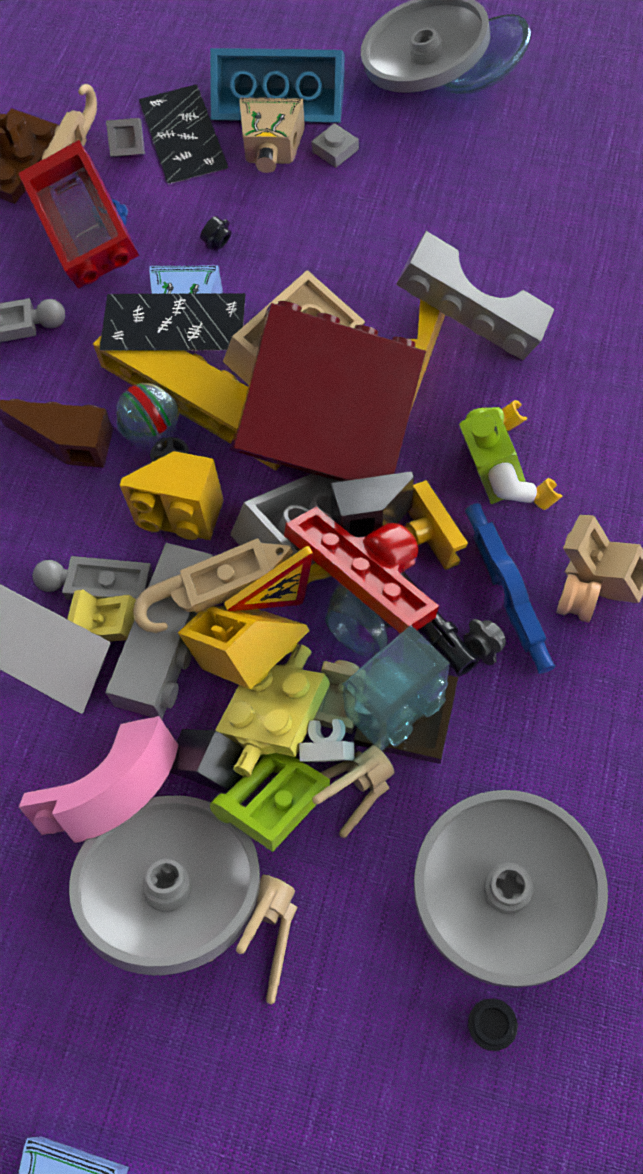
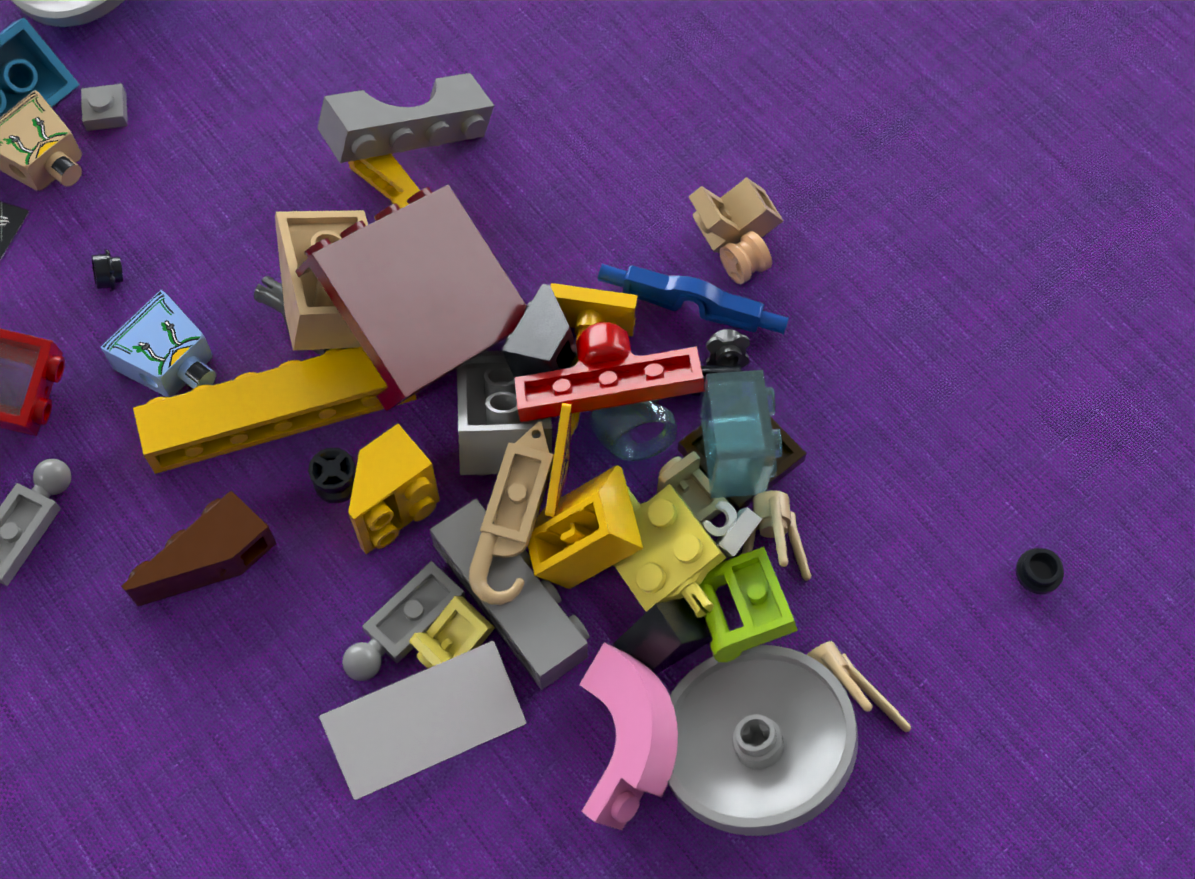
camera: 60 degrees left, 0 degrees up
(146, 415) = (267, 462): clear light blue helmet -> none
(171, 321) = (187, 370): black sticker -> none
(496, 457) = (571, 215): torso -> none
(510, 888) = (949, 478): light grey dish -> none

